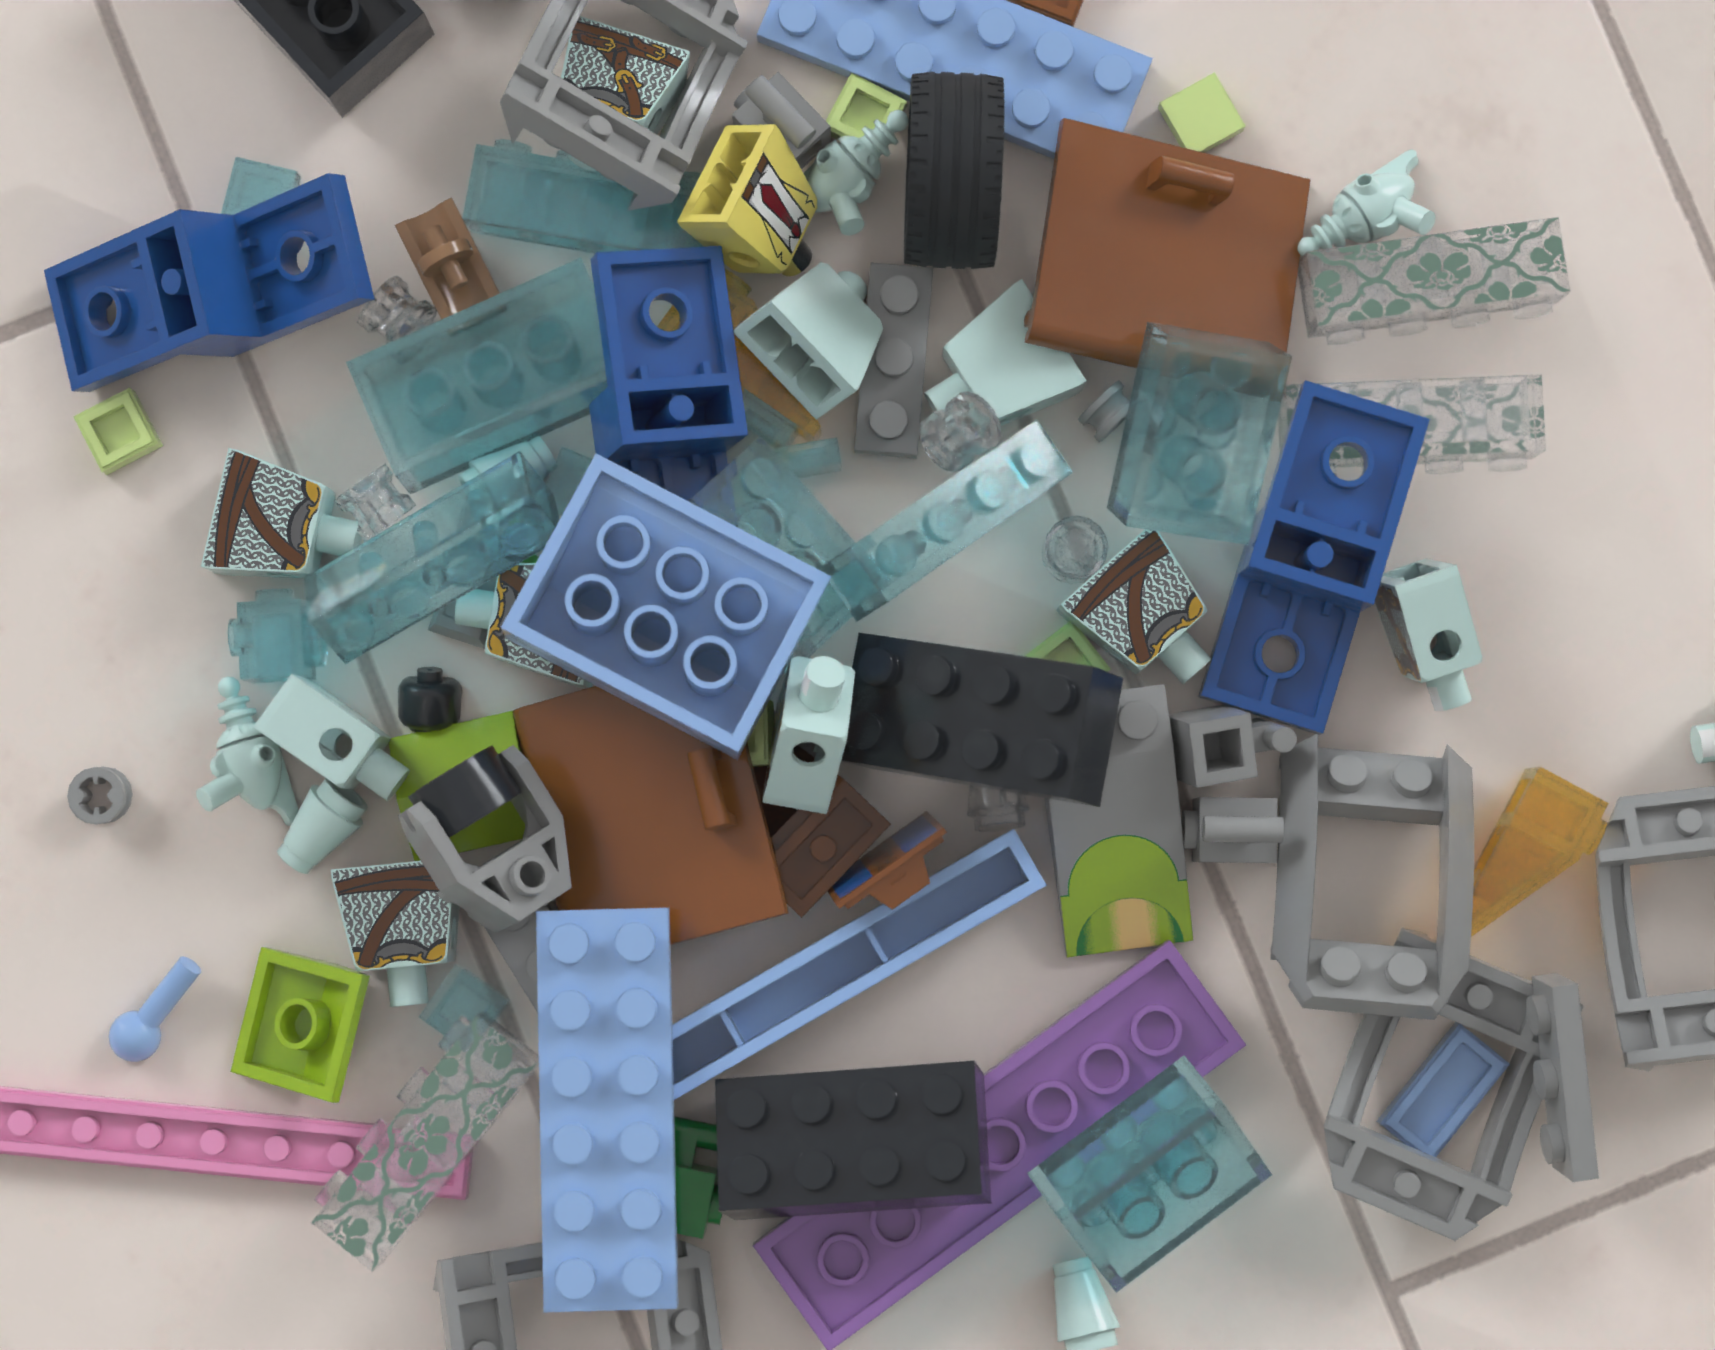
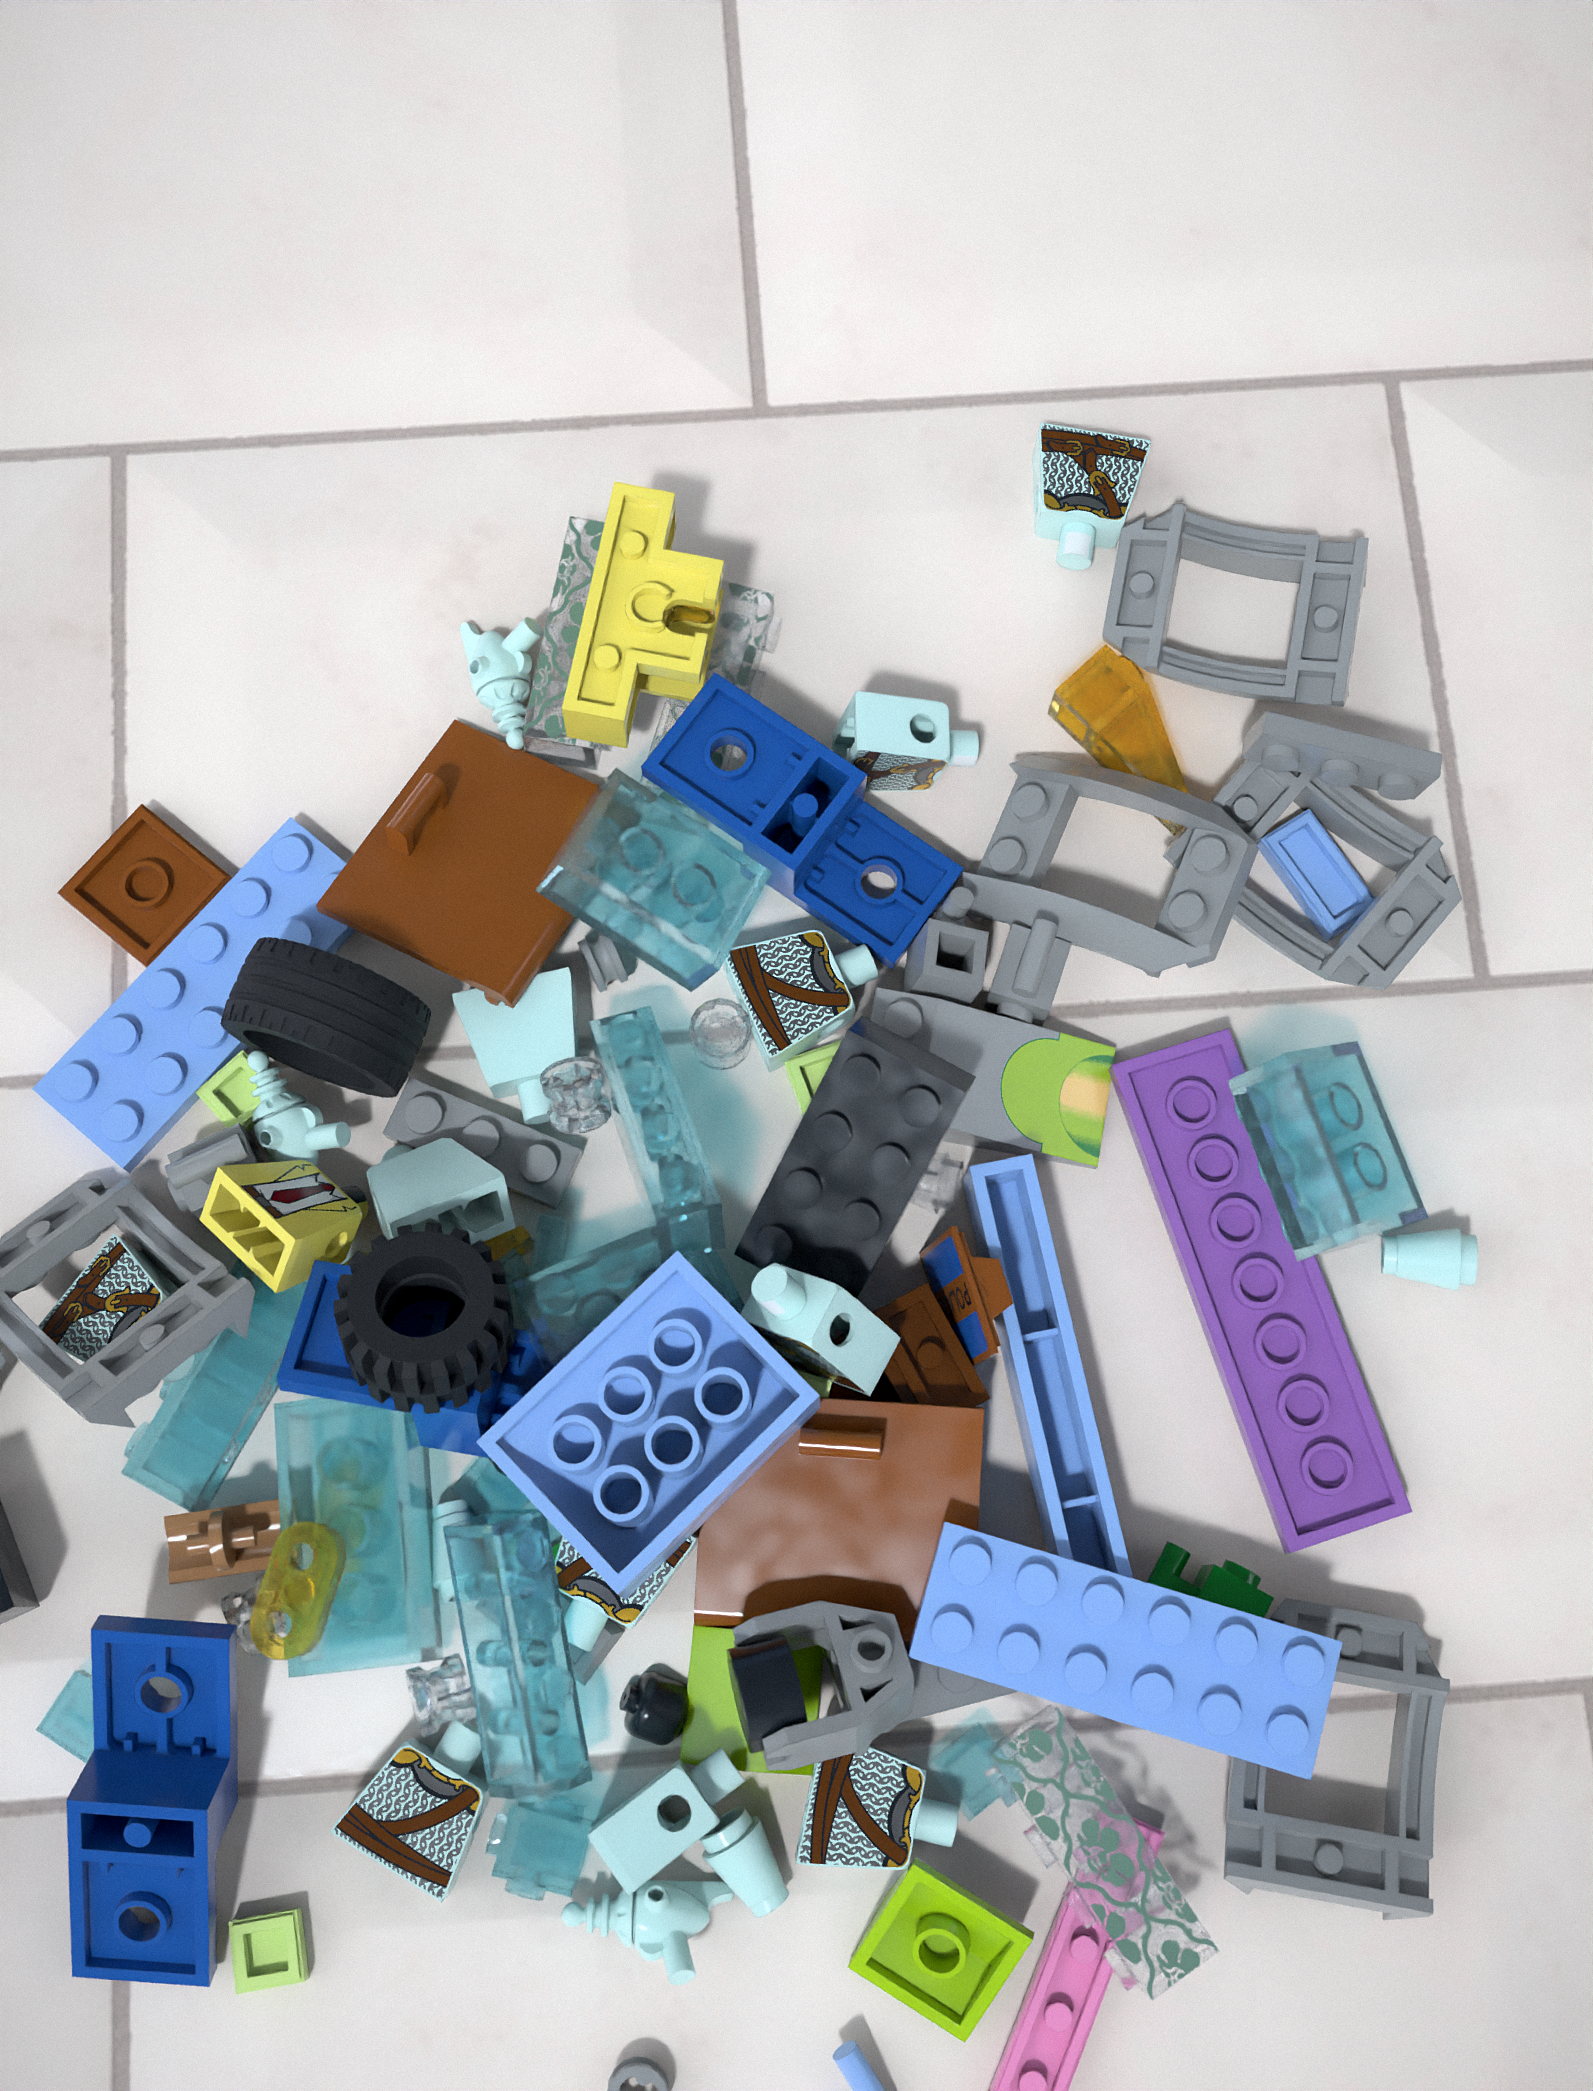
camera: 75 degrees left, 10 degrees down
(419, 342) = (300, 1593): none -> clear yellow plate
(727, 331) = (416, 1270): none -> black tyre
(852, 1141) = (1219, 1420): black brick -> none
(1201, 115) = (359, 792): yellowish green tile -> none
(1463, 329) = (643, 620): none -> light yellow piece

